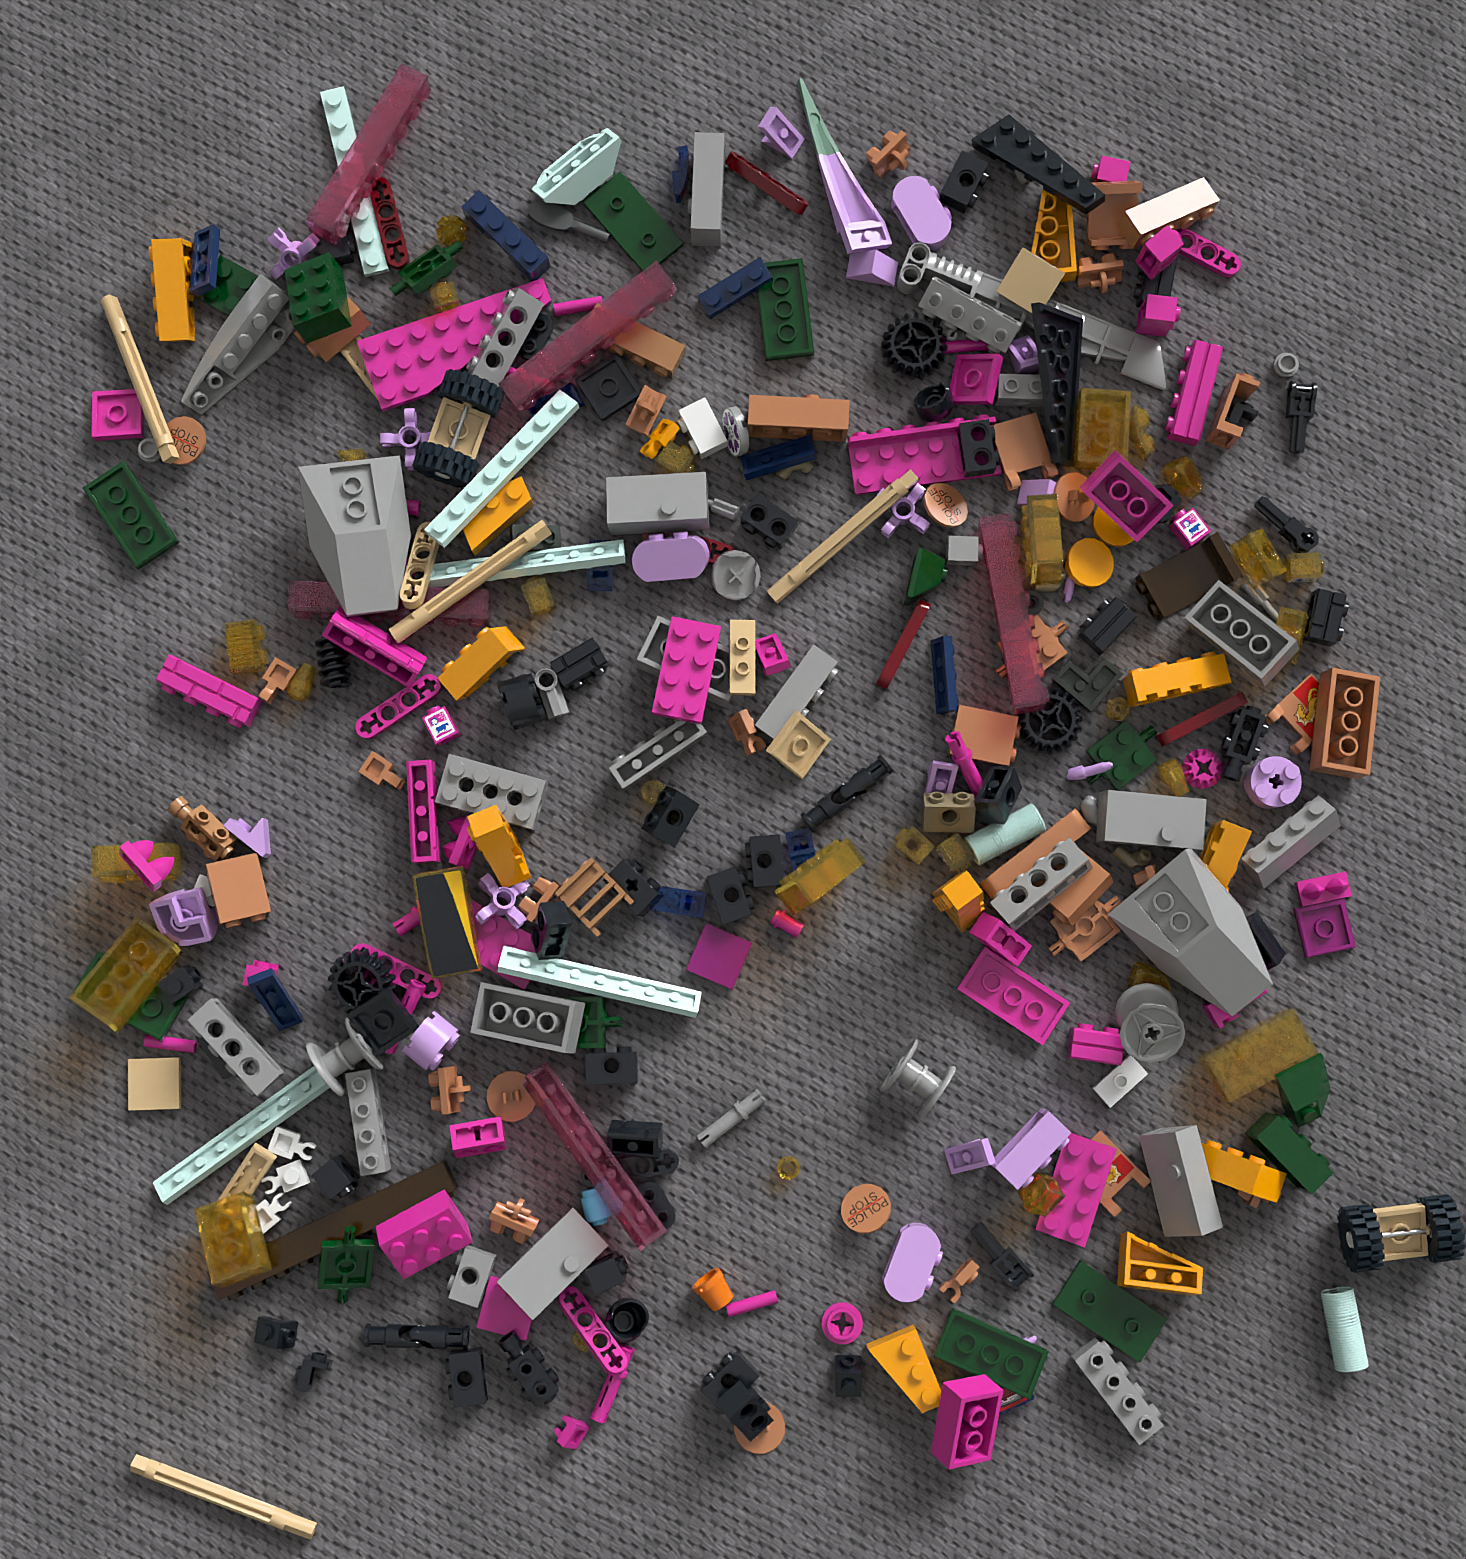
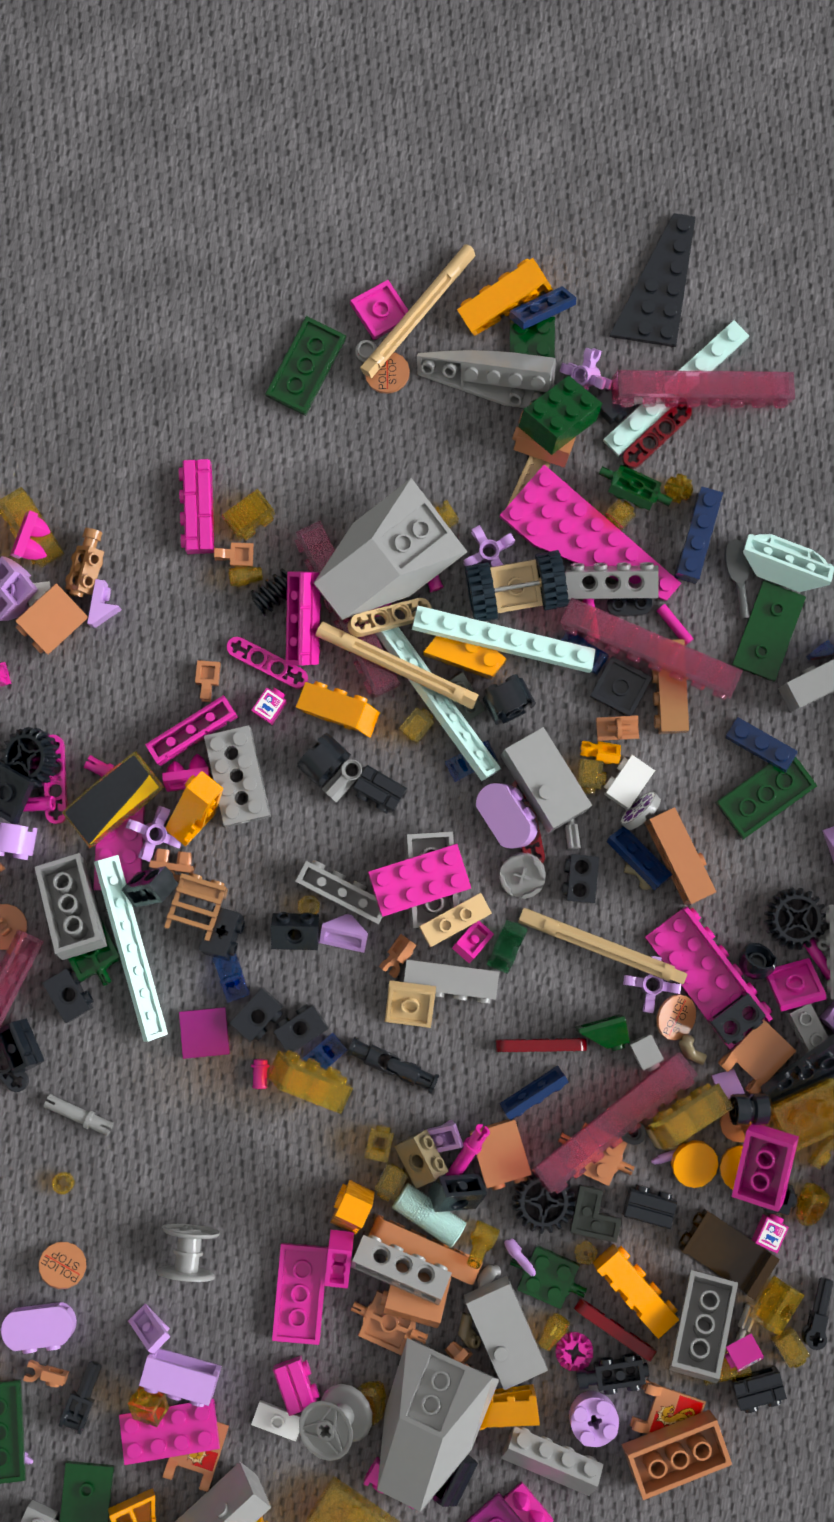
camera: 60 degrees right, 0 degrees up
(259, 152) = (657, 299): none -> black wing
(562, 496) = (508, 699): none -> black brick
(698, 771) = (344, 933): none -> lavender slope
(793, 625) = (506, 946): none -> clear green brick
(978, 510) = (688, 1050): none -> dark tan arm
(1055, 796) = (482, 1240): none -> clear yellow pin
(1067, 480) = (750, 1109): none -> black wheel
(1285, 608) = (743, 1353): none -> dark pink brick

